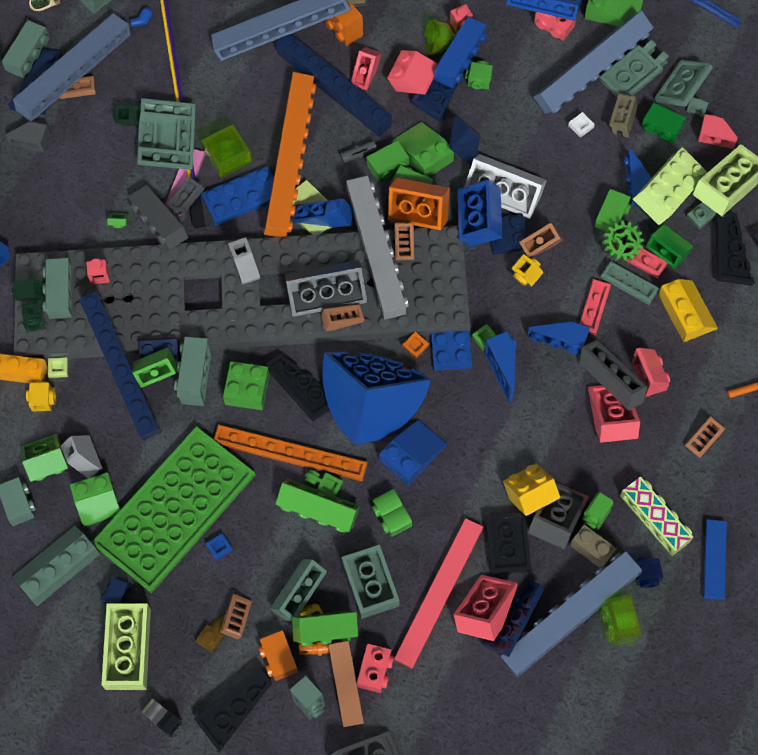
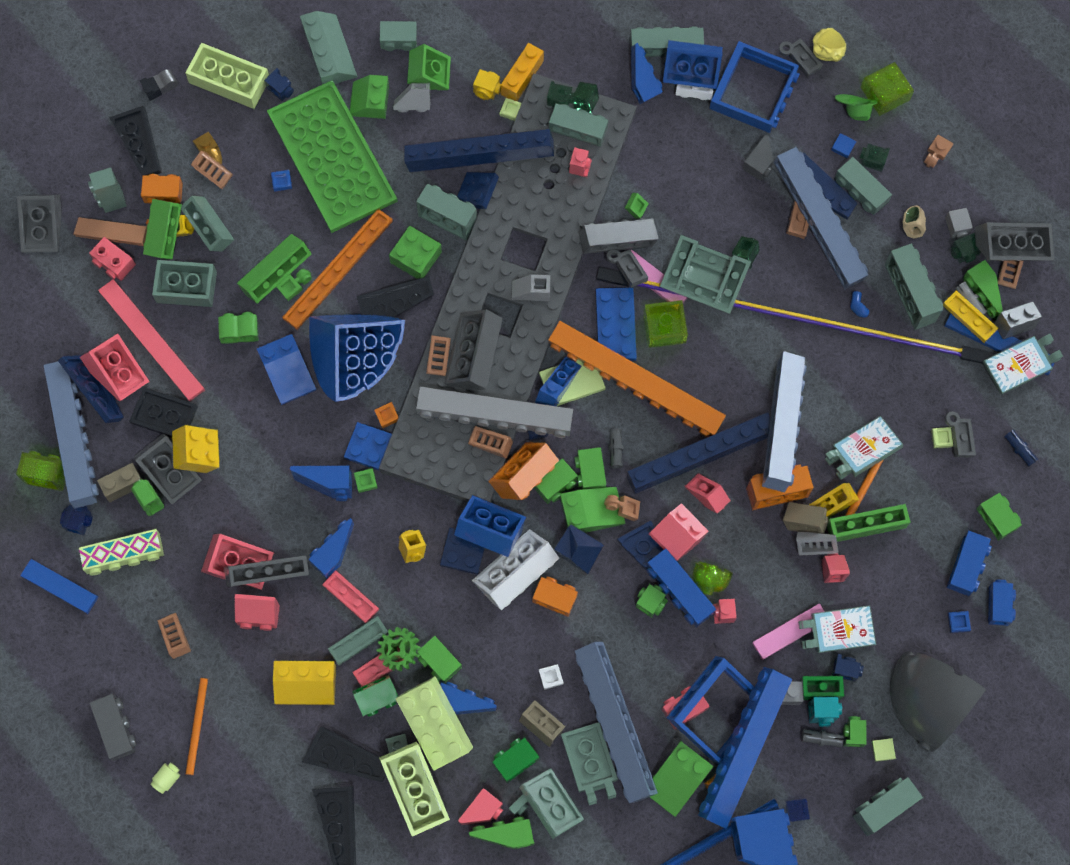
camera: 110 degrees right, 5 degrees up
(154, 367) = (461, 176): bright green brick -> none
(409, 122) = (627, 506): none -> nougat plate
(513, 146) = (555, 596): none -> orange brick
(541, 240) = (438, 575): nougat slope -> none
(724, 104) = (509, 835): none -> bright green slope

